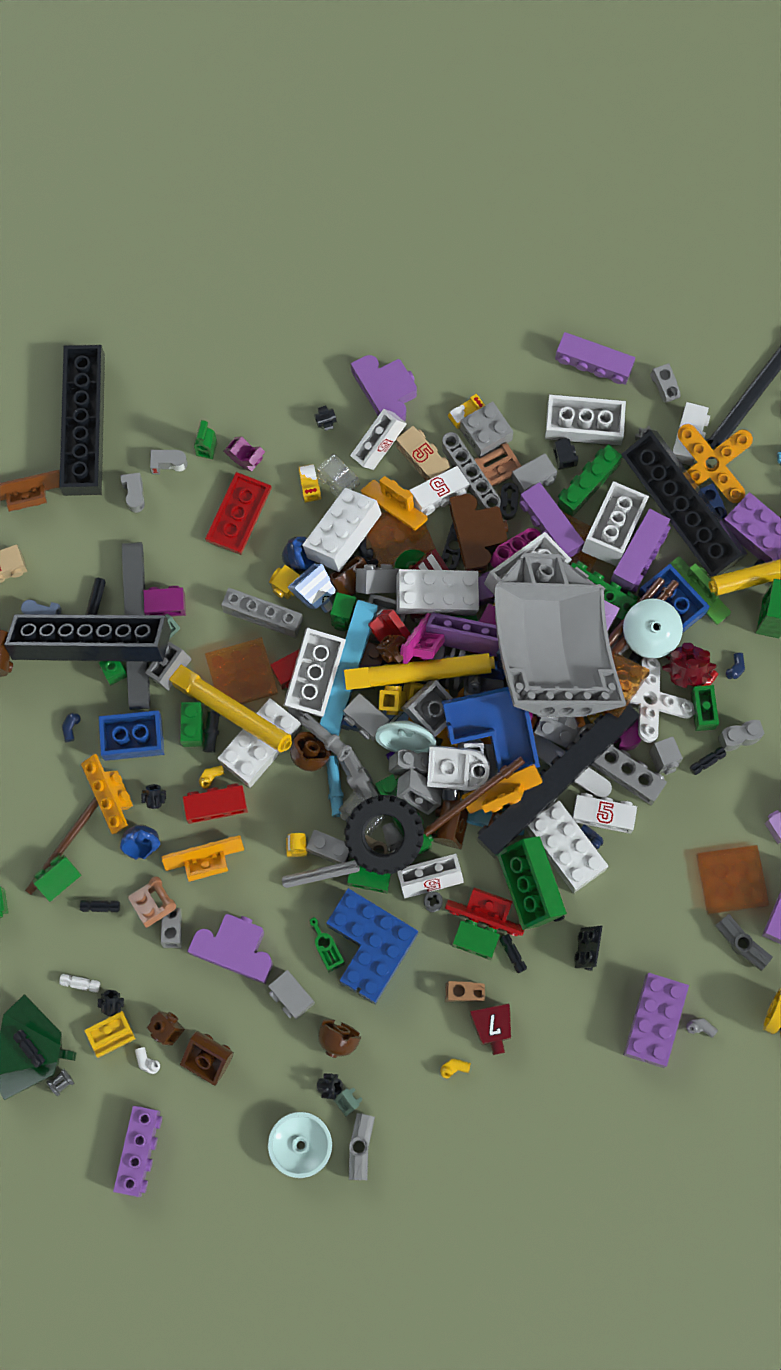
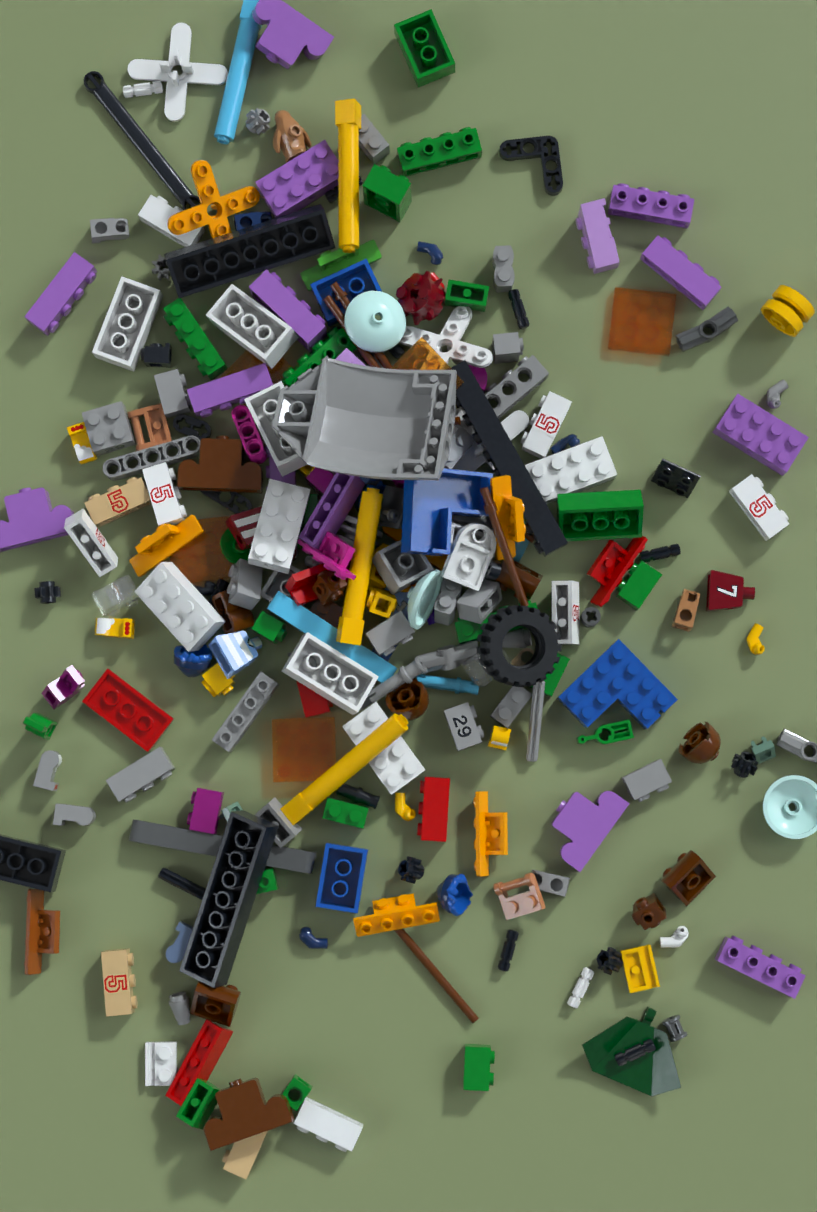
camera: 70 degrees left, 10 degrees up
(56, 877) = (469, 987): green brick -> none
(183, 538) = (141, 775): none -> light grey brick
(297, 808) = (463, 726): none -> light grey brick
(585, 1038) = (759, 507): none -> white brick

